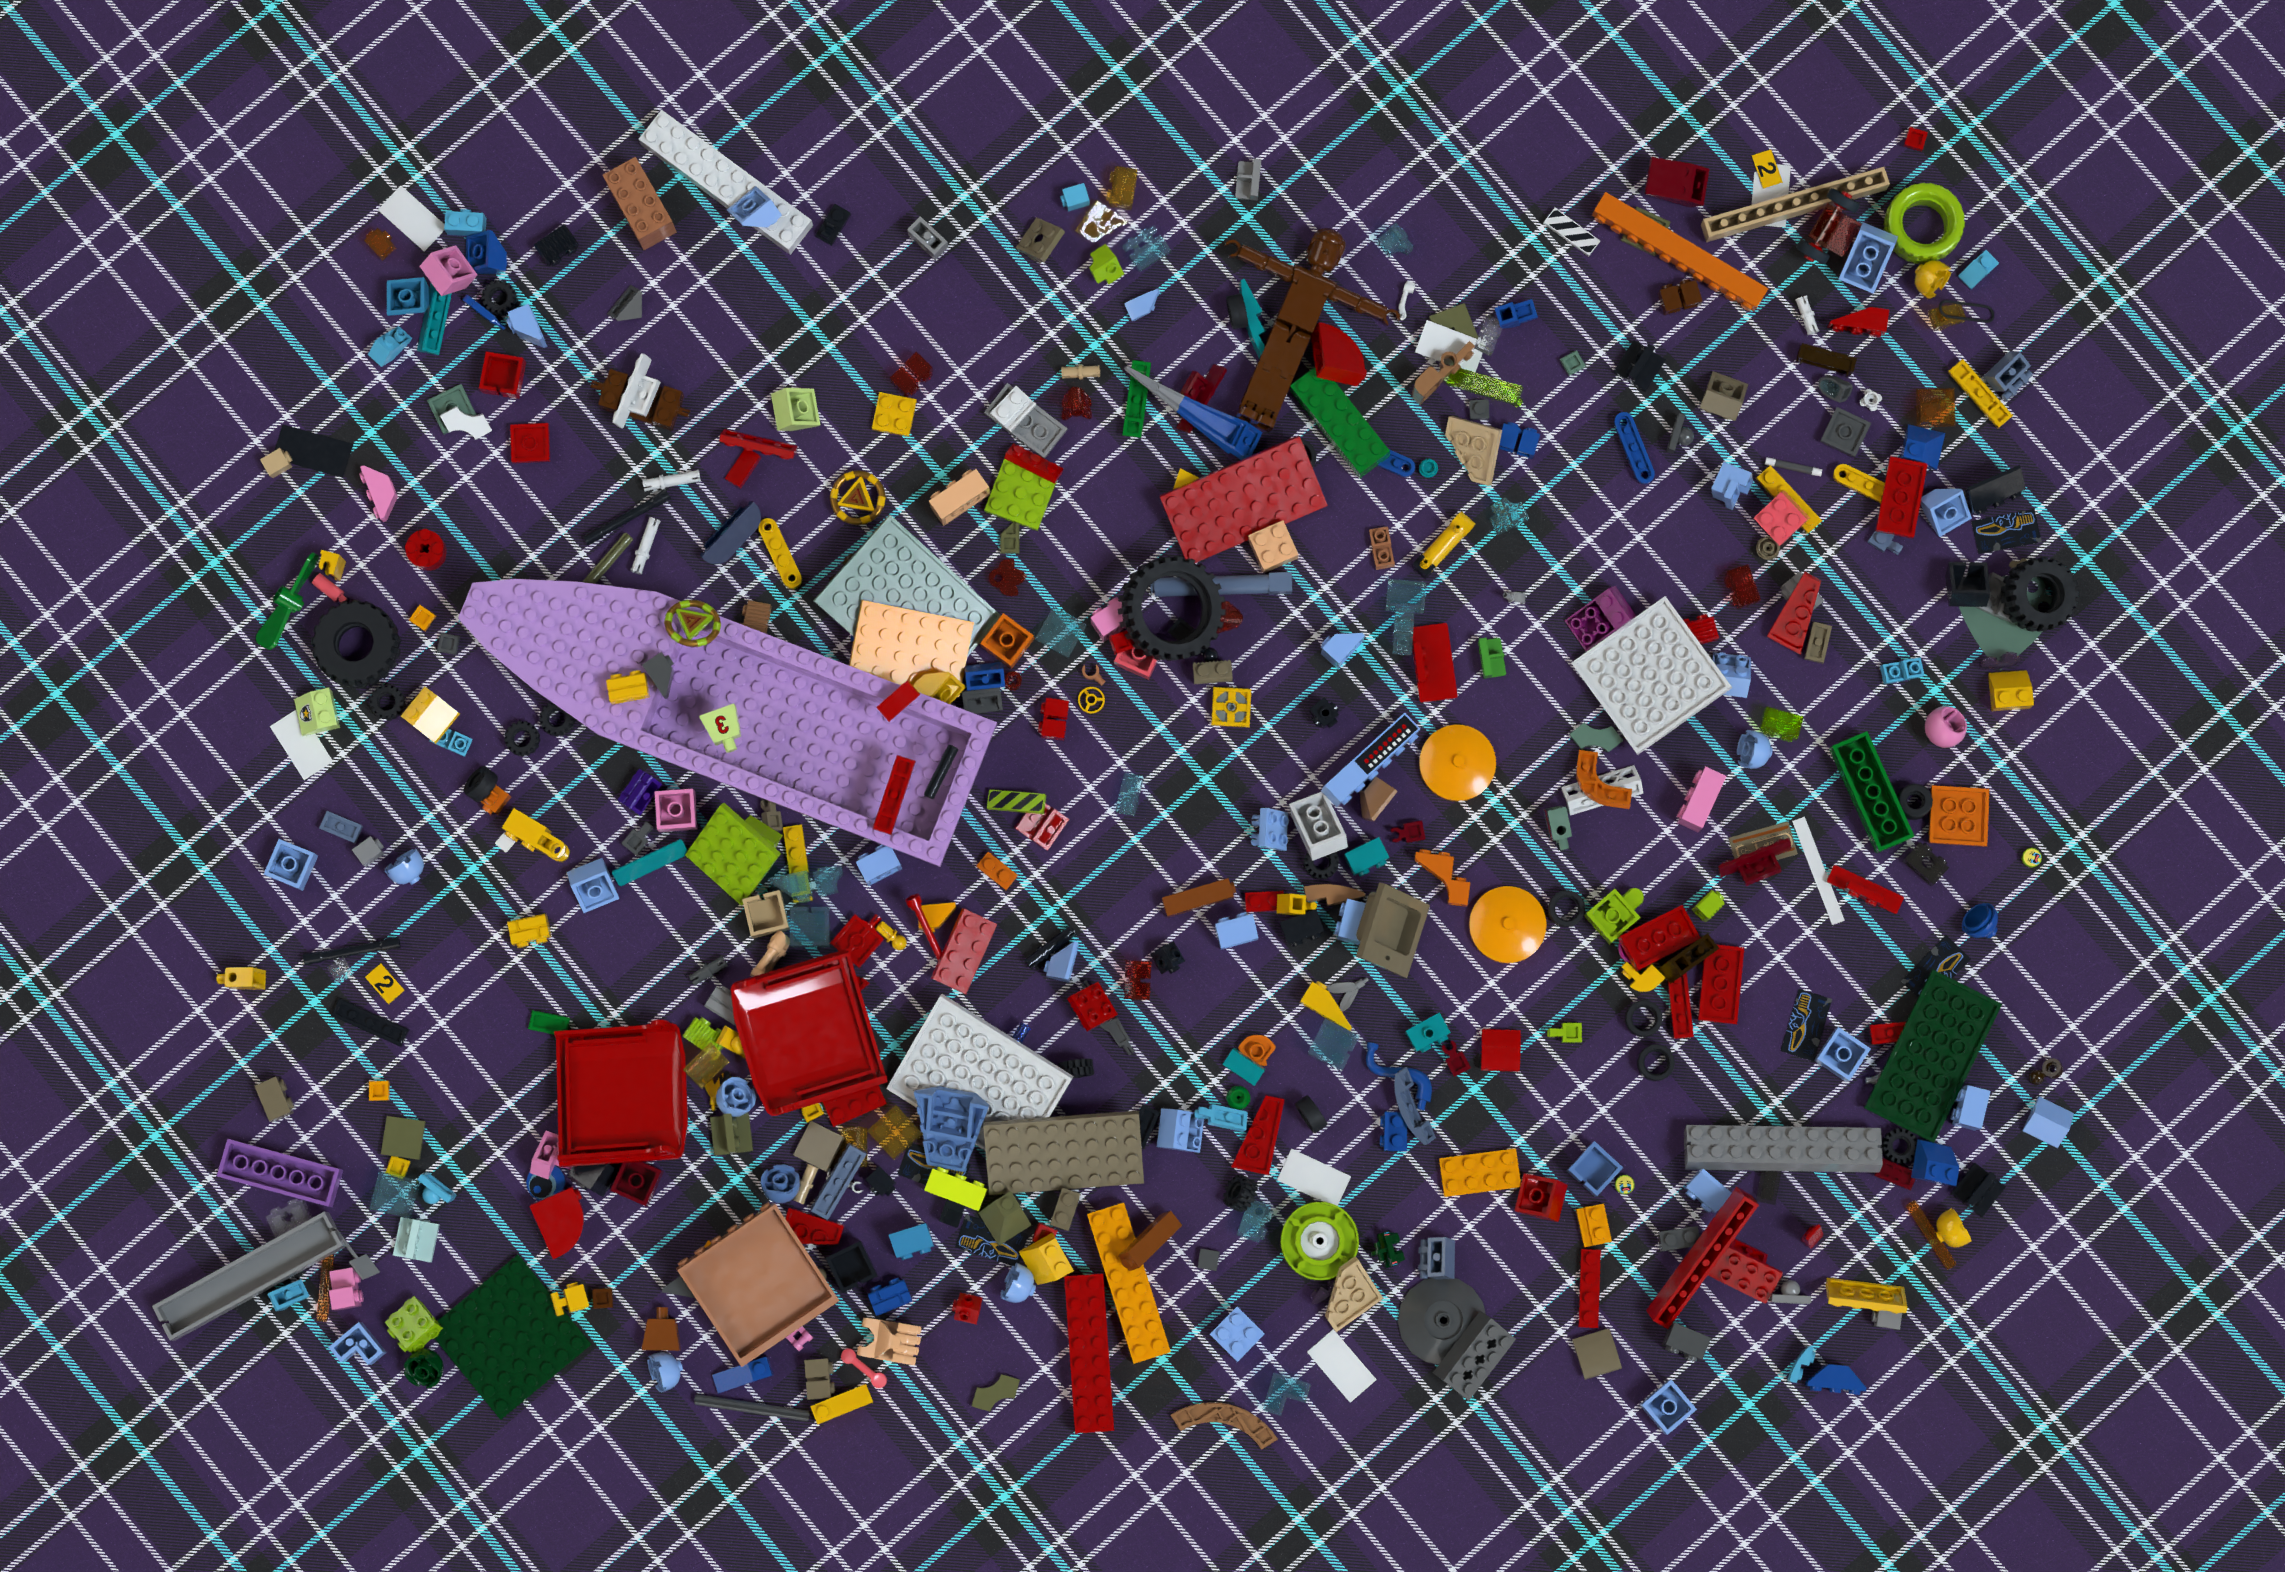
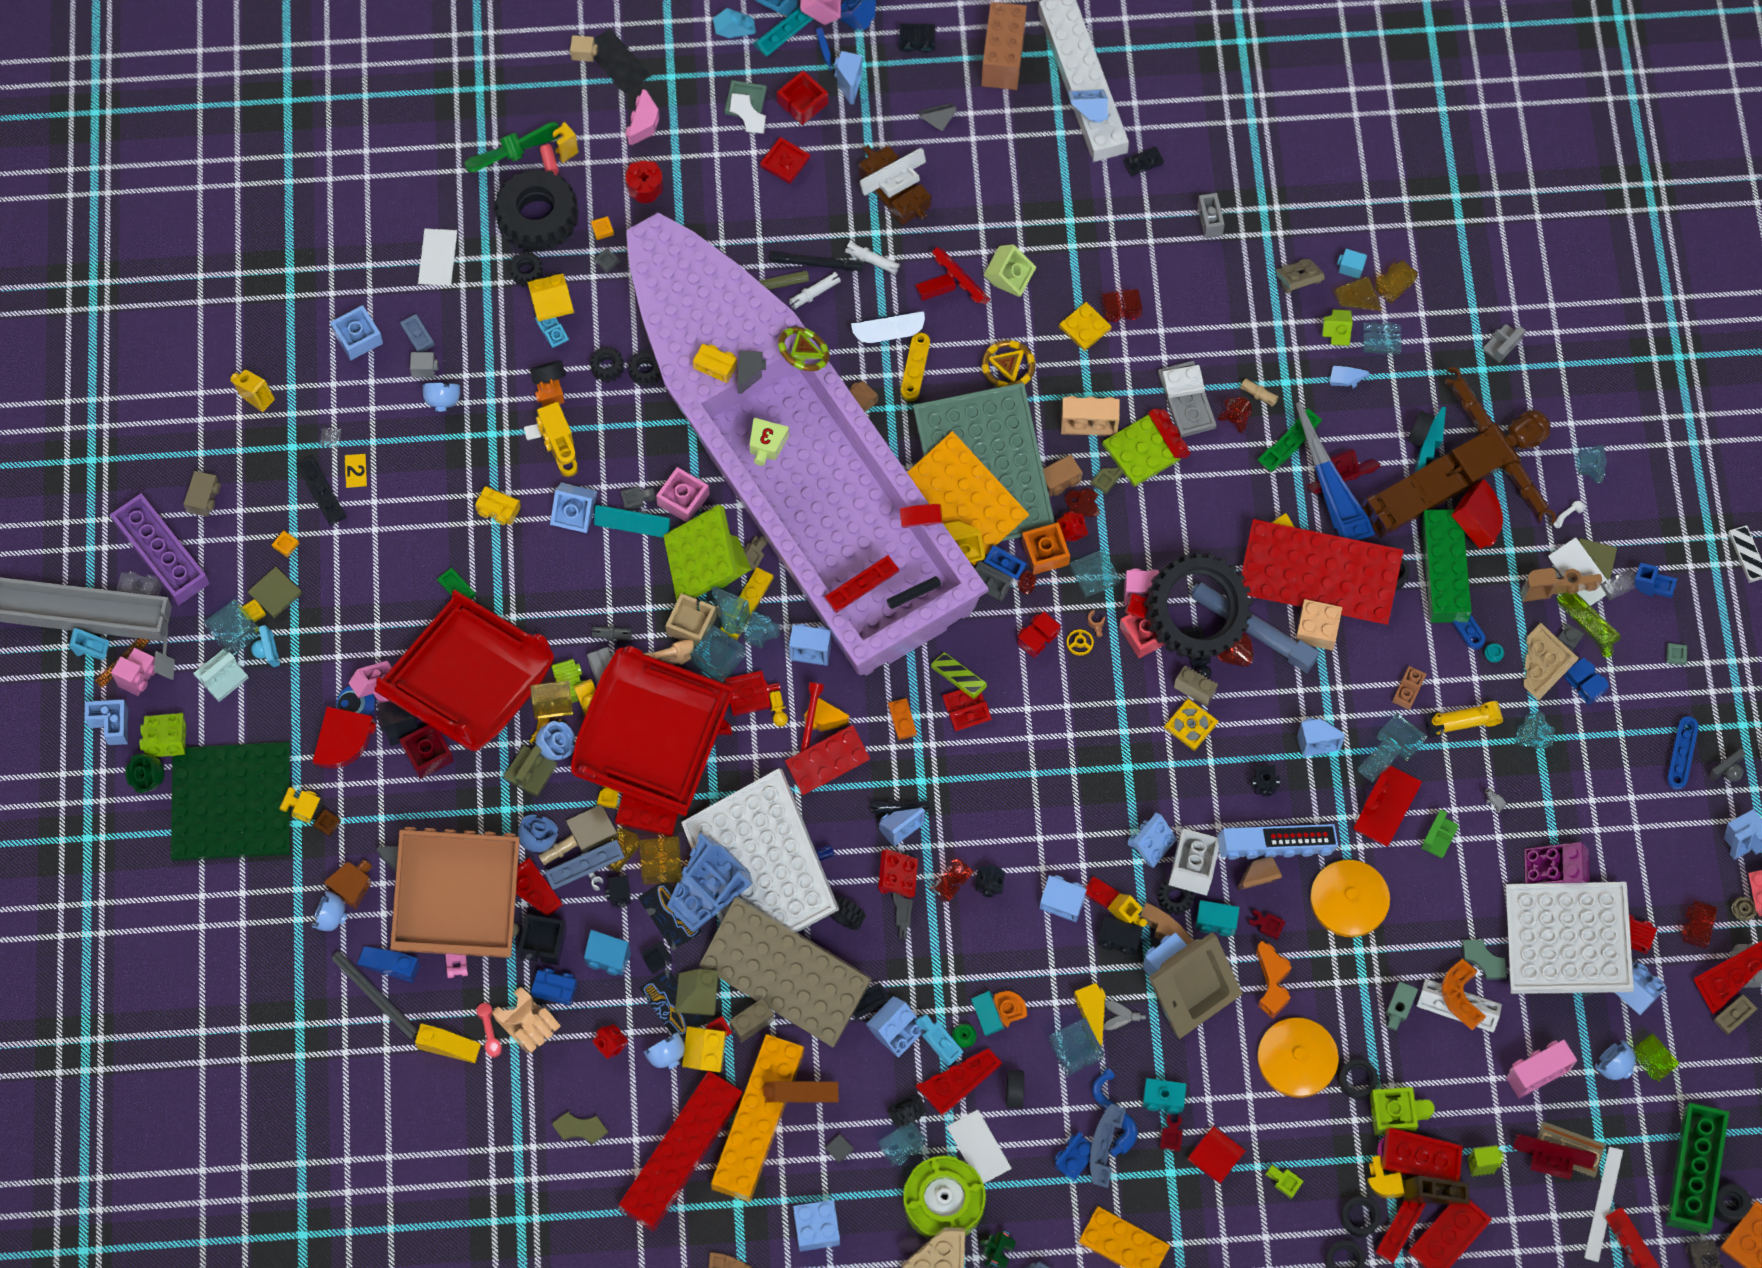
camera: 35 degrees right, 15 degrees down
(317, 712) = (468, 240): yellowish green slope -> none
(320, 956) = (377, 440): black piece -> none
(499, 286) = (843, 36): black tyre -> none
(639, 792) = (665, 462): dark purple brick -> none
(819, 1379) = (447, 1010): dark tan piece -> none
(956, 1188) = (675, 939): neon yellow brick -> none
(972, 565) = (1062, 475): none -> medium nougat piece
(1014, 605) = (1073, 526): none -> red brick
(1129, 794) = (1054, 733): clear light blue slope -> none
(1198, 897) = (1051, 852): dark orange brick -> none
(1639, 365) = (1733, 693): black bracket -> none

